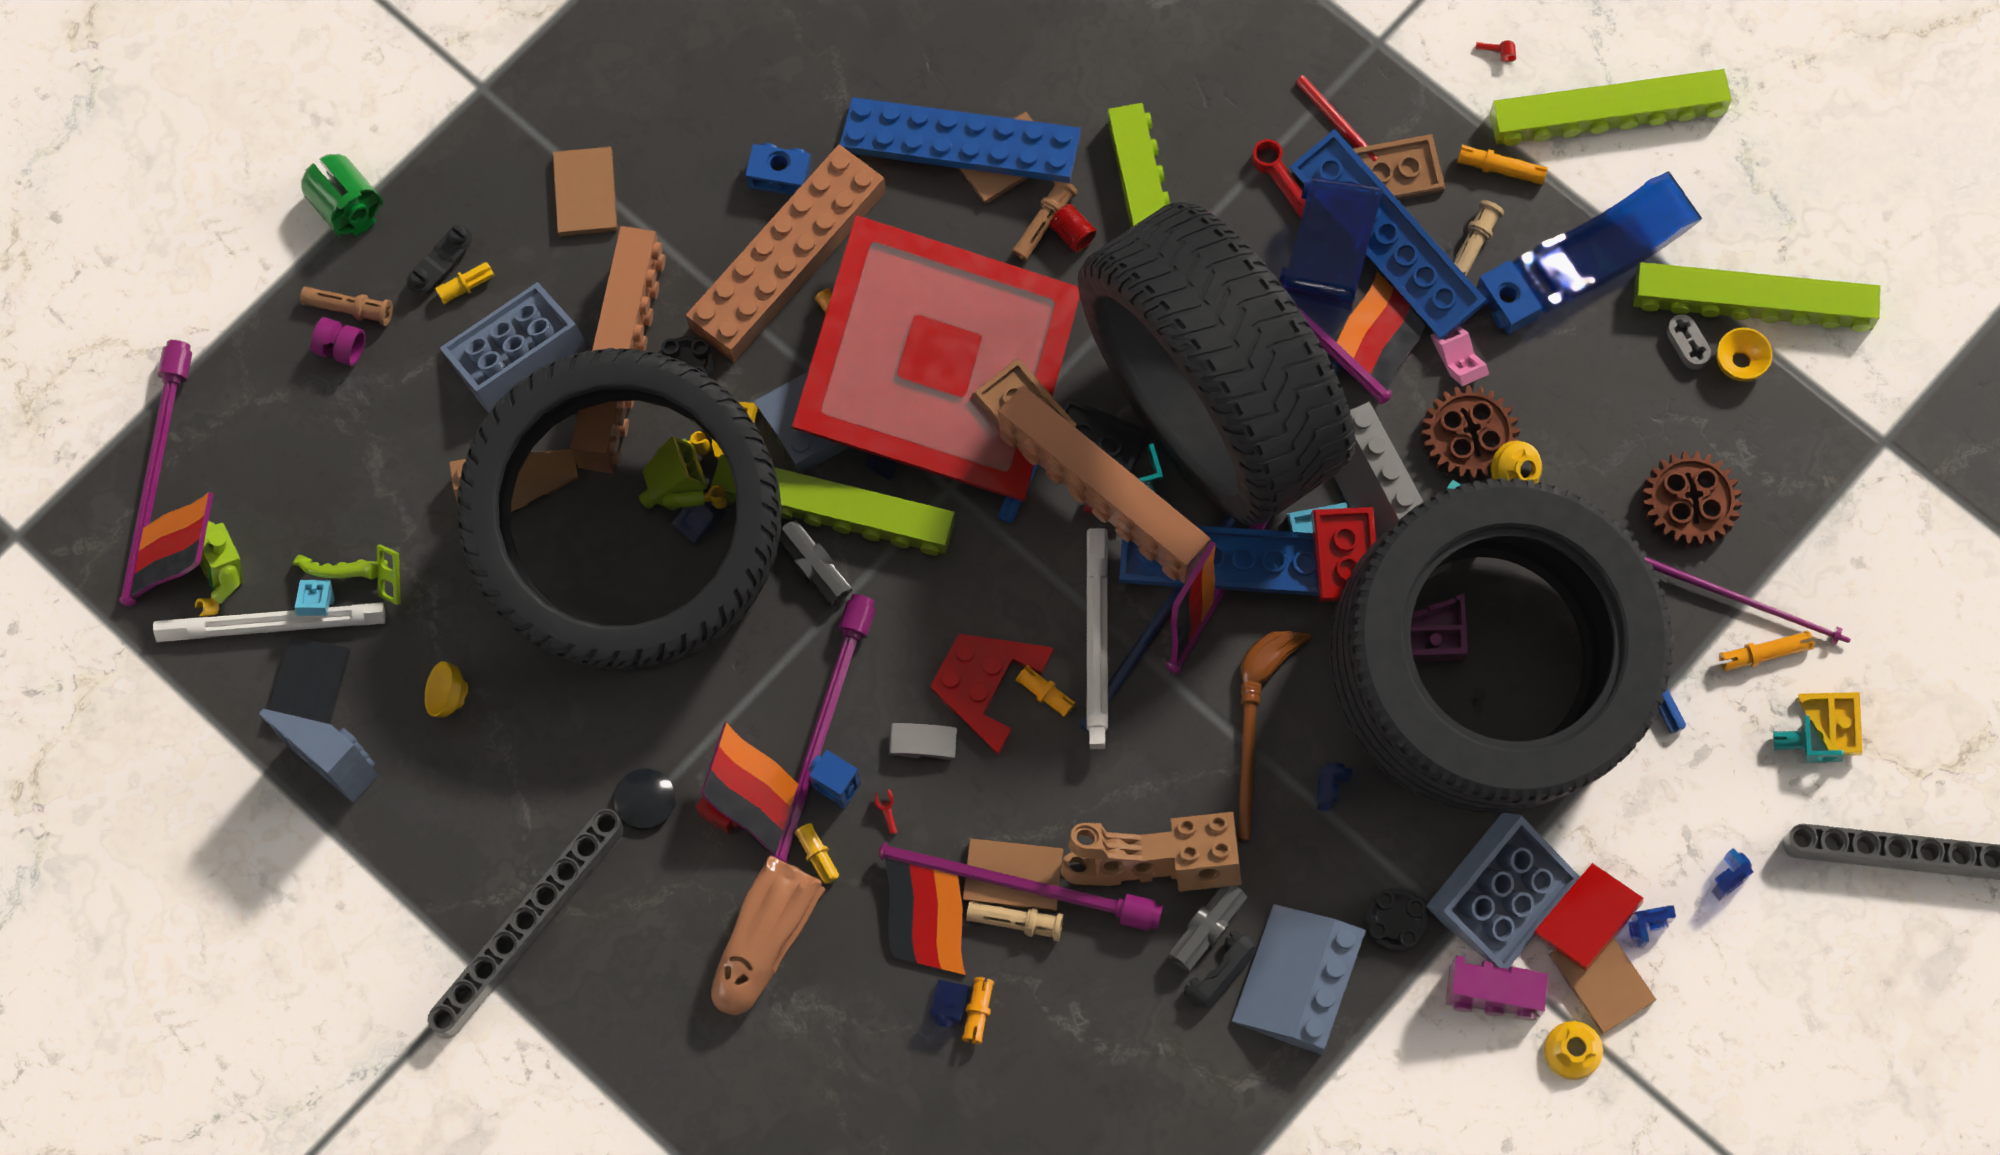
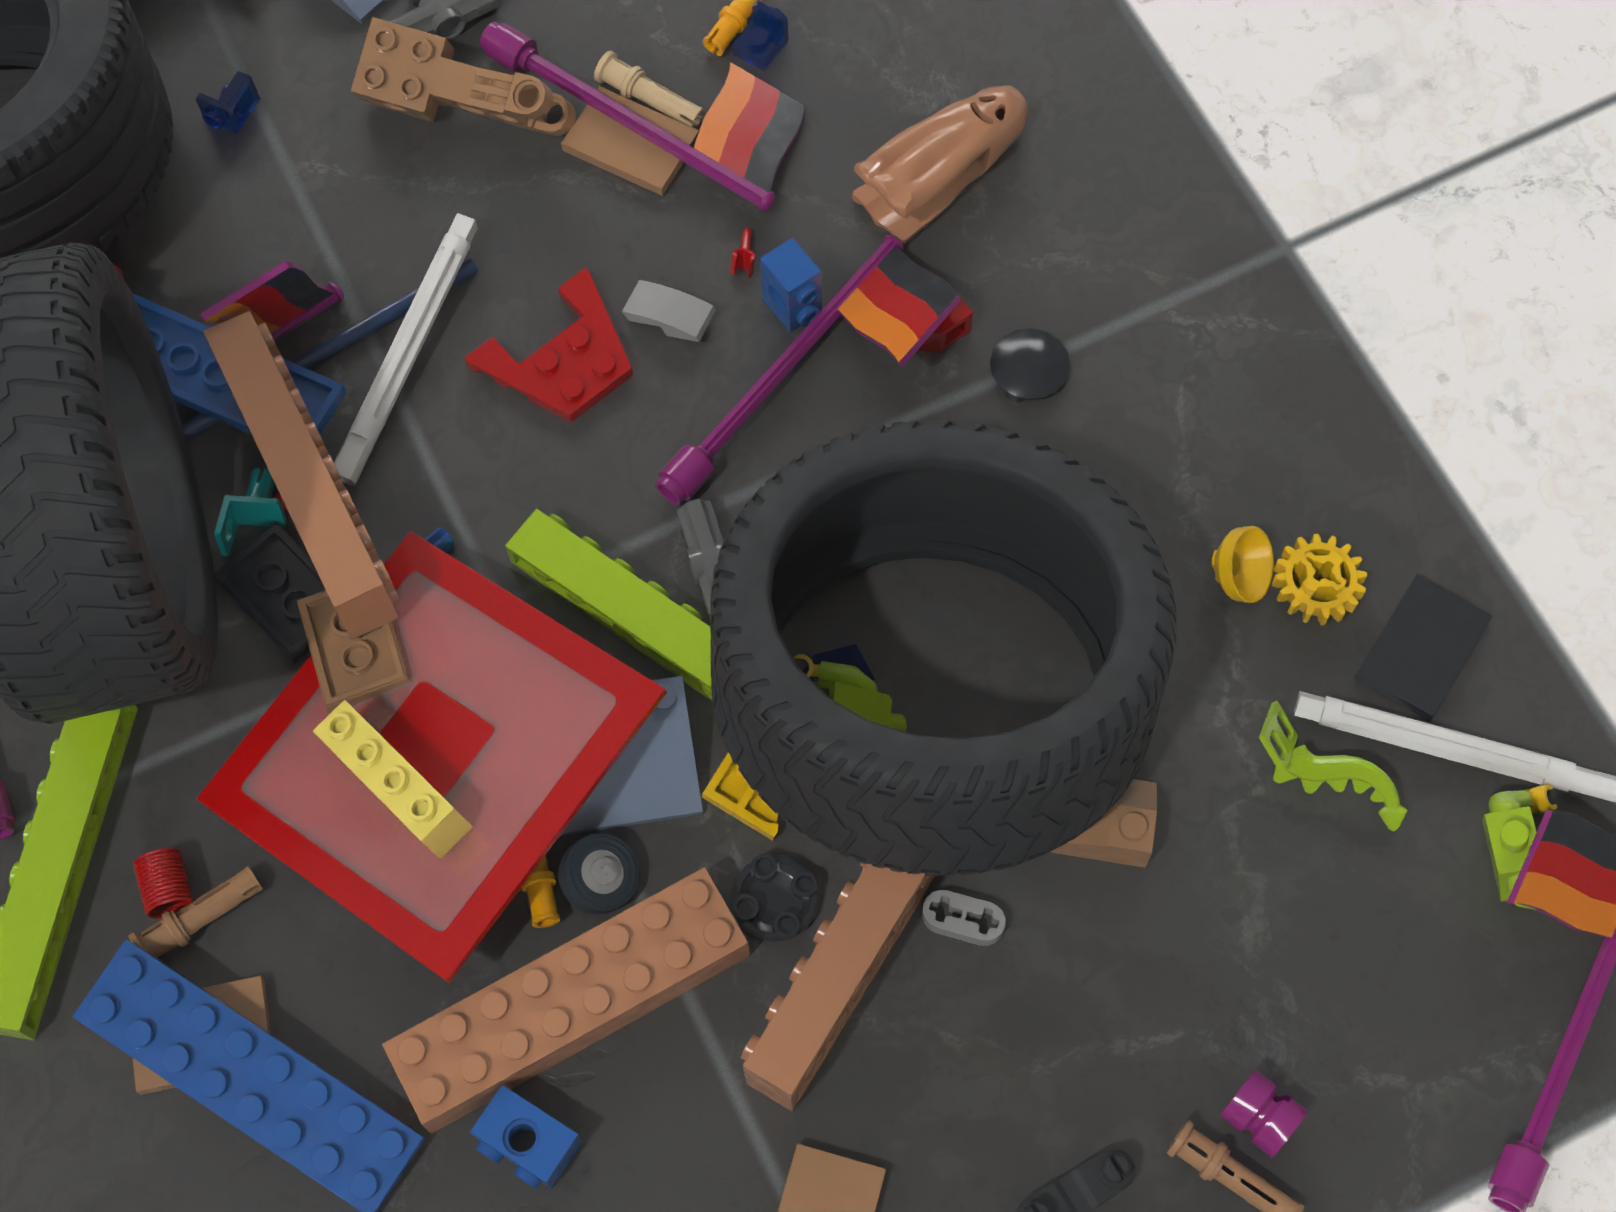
camera: 160 degrees left, 5 degrees down
(314, 597) = (1390, 741): medium azure bracket -> none
(327, 750) = (1433, 506): sand blue slope -> none
(393, 692) = (1323, 561): none -> yellow gear
(464, 282) = (1048, 1143): yellow axle -> none
(513, 344) = (1008, 1011): sand blue slope -> none
(524, 938) = (1206, 283): dark grey beam -> none
(798, 331) = (598, 873): none -> black wheel
(817, 853) = (846, 234): yellow axle -> none
(945, 317) = (392, 779): none -> light yellow brick
(1045, 691) = (497, 314): light orange pin -> none
(1256, 668) = (242, 253): dark orange piece -> none

